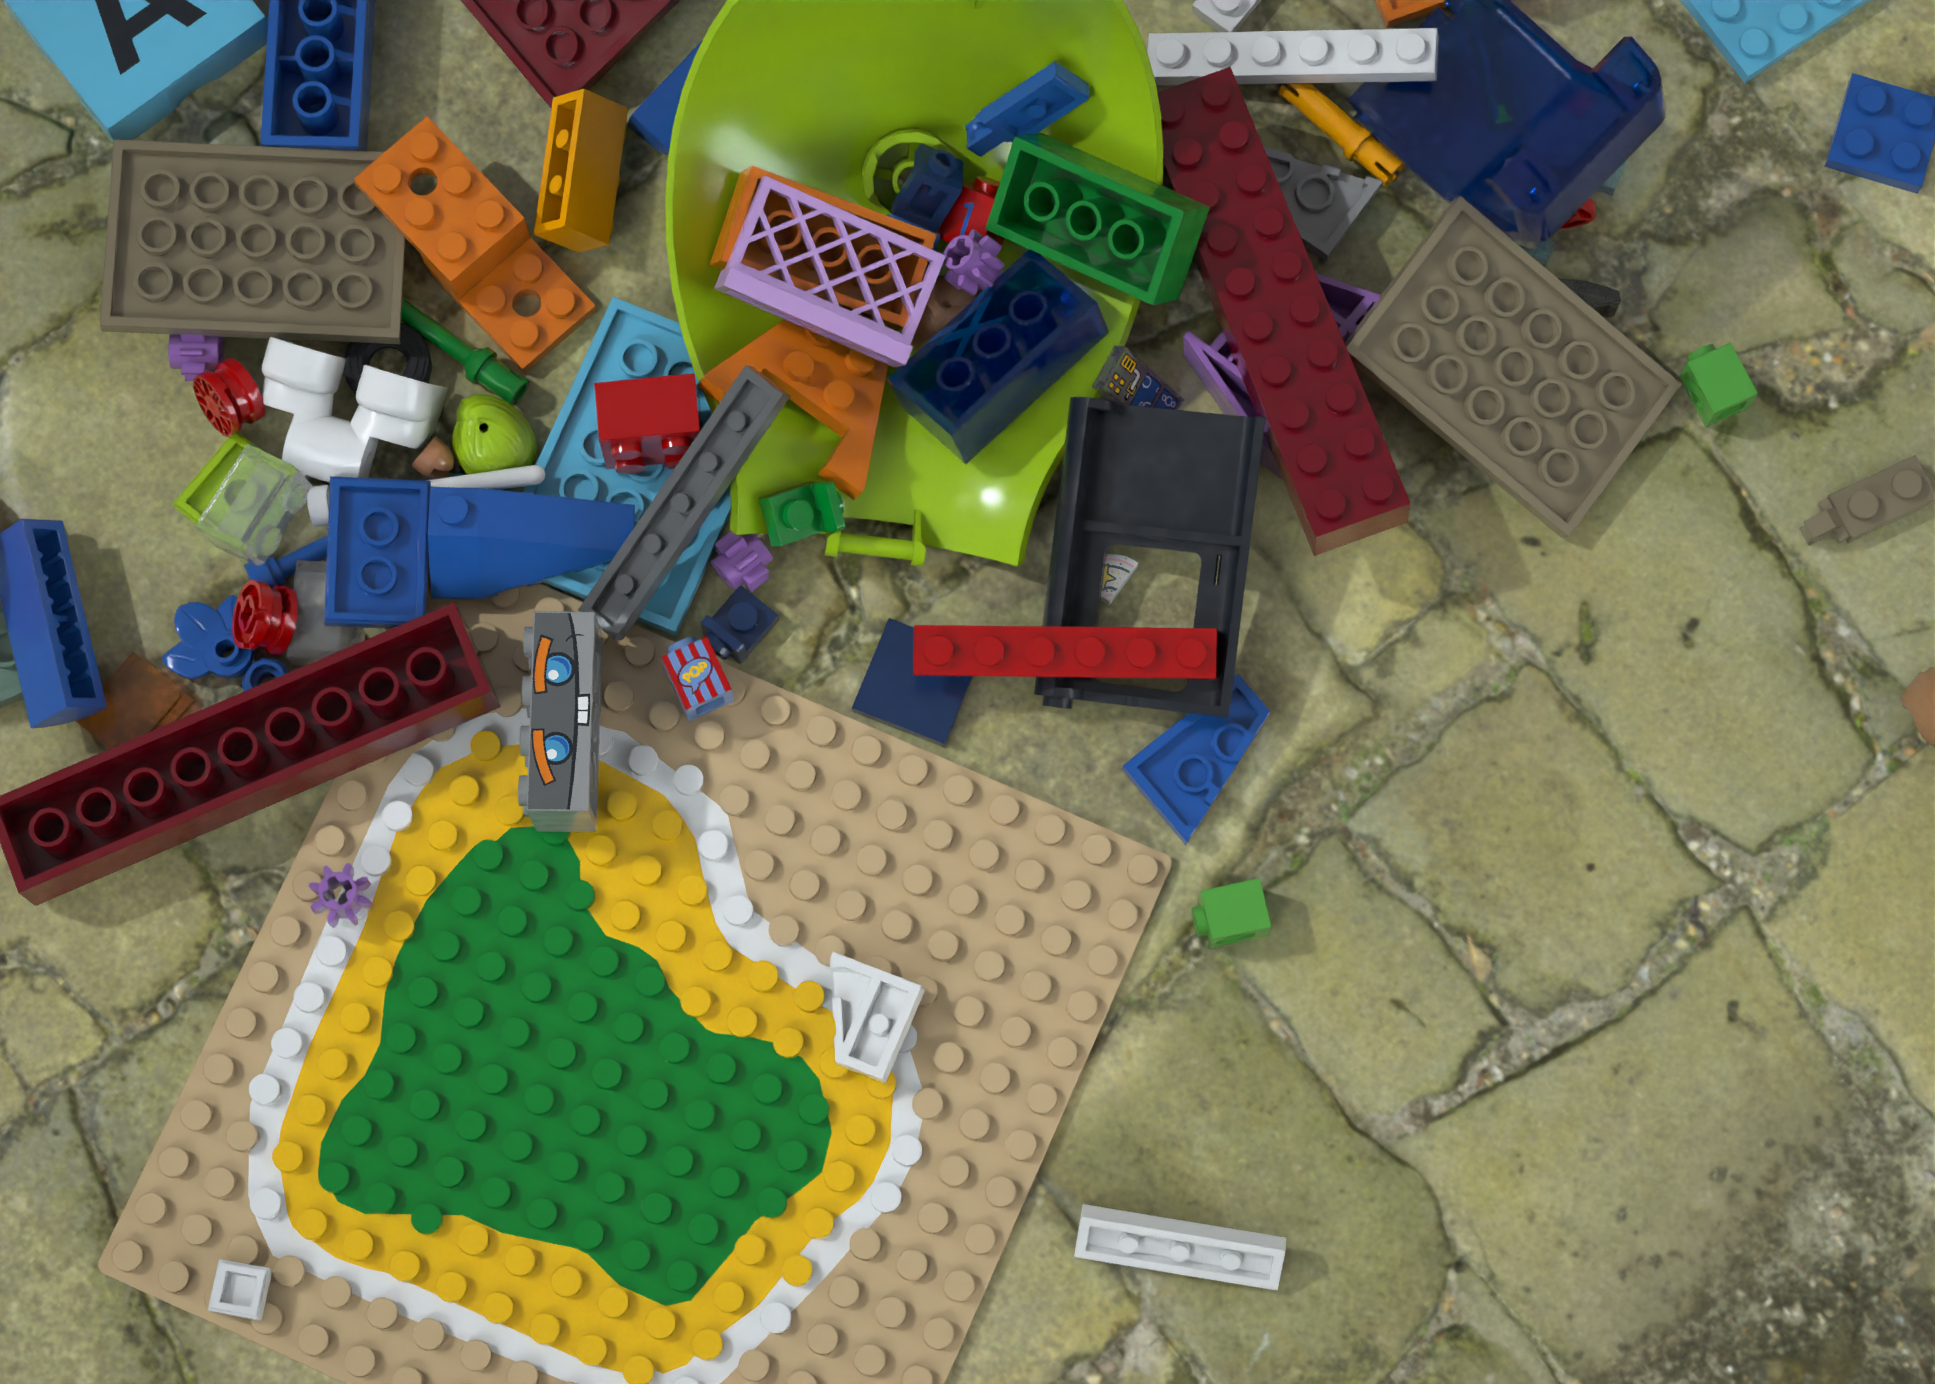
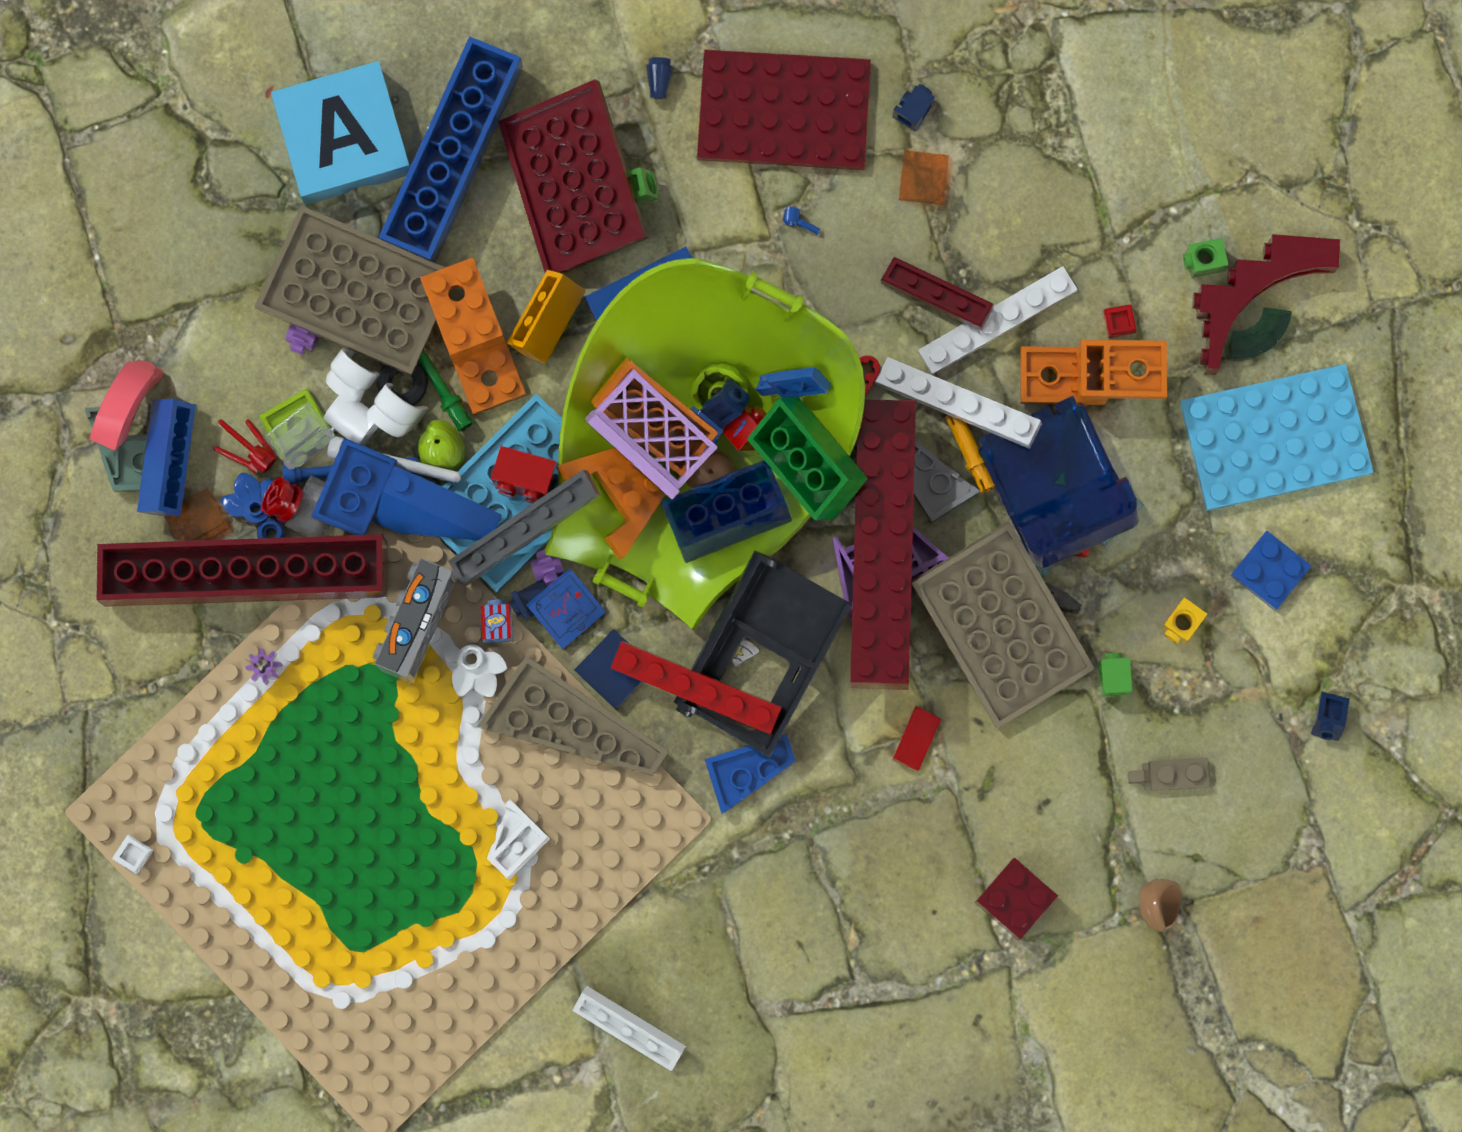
camera: 25 degrees right, 5 degrees up
(201, 564) = (261, 457): none -> red plant
(229, 397) = (309, 370): red wheel -> none
(435, 460) = (406, 446): nougat hinge -> none
(703, 772) = (479, 675): none -> white plate
(799, 614) = (566, 608): none -> blue tile
(802, 512) = (587, 555): green bracket -> none
(854, 787) = (556, 715): none -> dark tan wing
(972, 262) = (732, 455): medium lavender gear -> none
(1133, 383) = (795, 555): tile -> none
(1232, 913) = (729, 862): bright green brick -> none
(1445, 604) = (916, 739): none -> red slope
(1714, 791) = (1016, 899): none -> dark red brick
(1795, 242) = (1192, 613): none -> yellow brick

